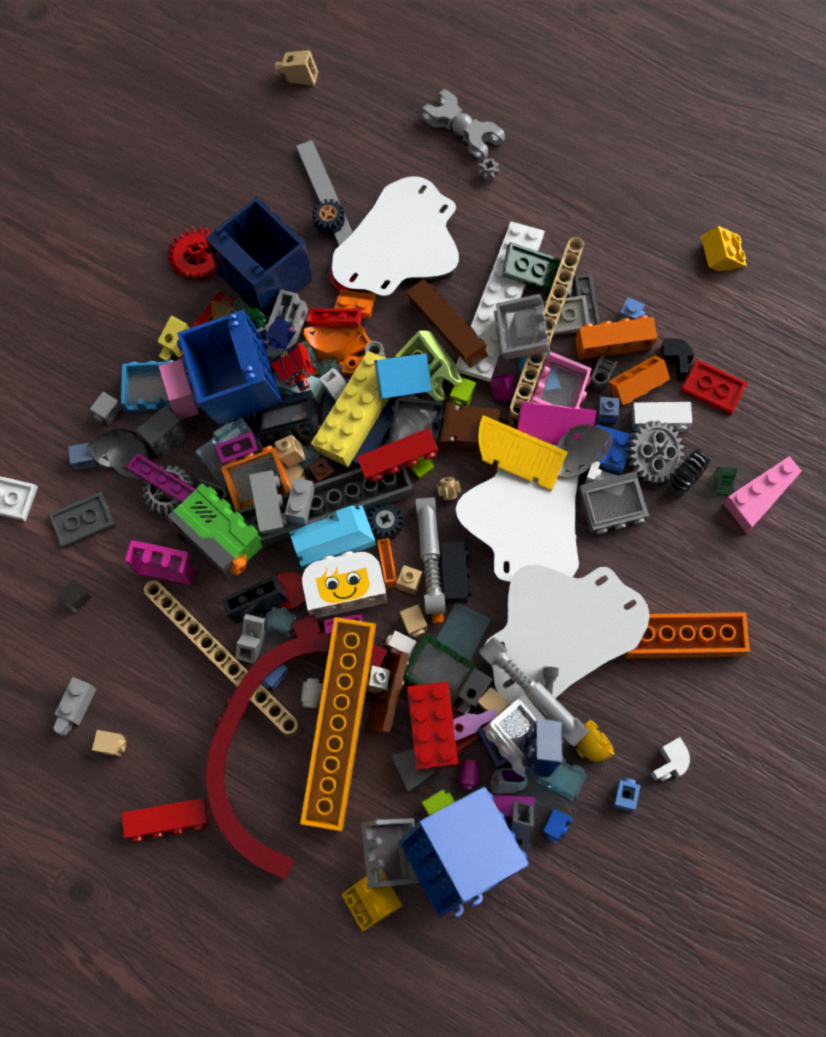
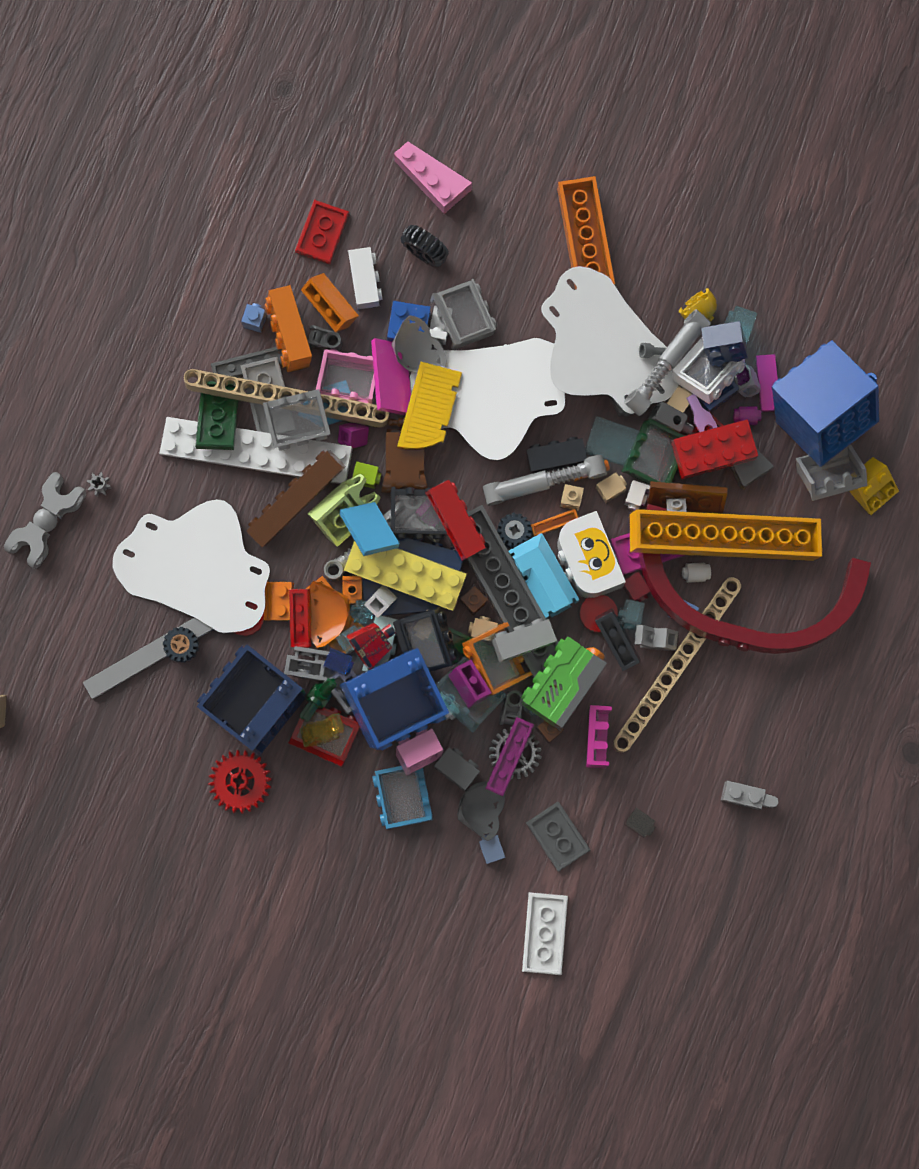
camera: 105 degrees left, 10 degrees up
(105, 408) = (436, 838): light grey brick -> none
(109, 743) = (776, 753): tan brick -> none
(165, 819) = (836, 684): red brick -> none
(169, 338) = (341, 778): light yellow torso -> none
(290, 451) = (464, 630): tan brick -> none
(299, 501) = (517, 609): light grey brick -> none
(311, 457) = (461, 617): clear light blue brick -> none
(438, 802) = (779, 439): lime brick -> none
(448, 488) = (471, 473): tan gear -> none
(521, 822) = (783, 360): dark grey torso -> none
(556, 826) = (778, 333): blue brick -> none
(608, 410) = (365, 329): sand blue brick -> none
(633, 789) = (746, 272): medium blue brick -> none
(646, 438) = (405, 279): light grey gear -> none
(676, 758) = (700, 234): white brick -> none
(677, 352) = (292, 265): black brick -> none
(723, 249) = (167, 233): yellow slope -> none
(724, 480) = (423, 214): clear green panel -> none

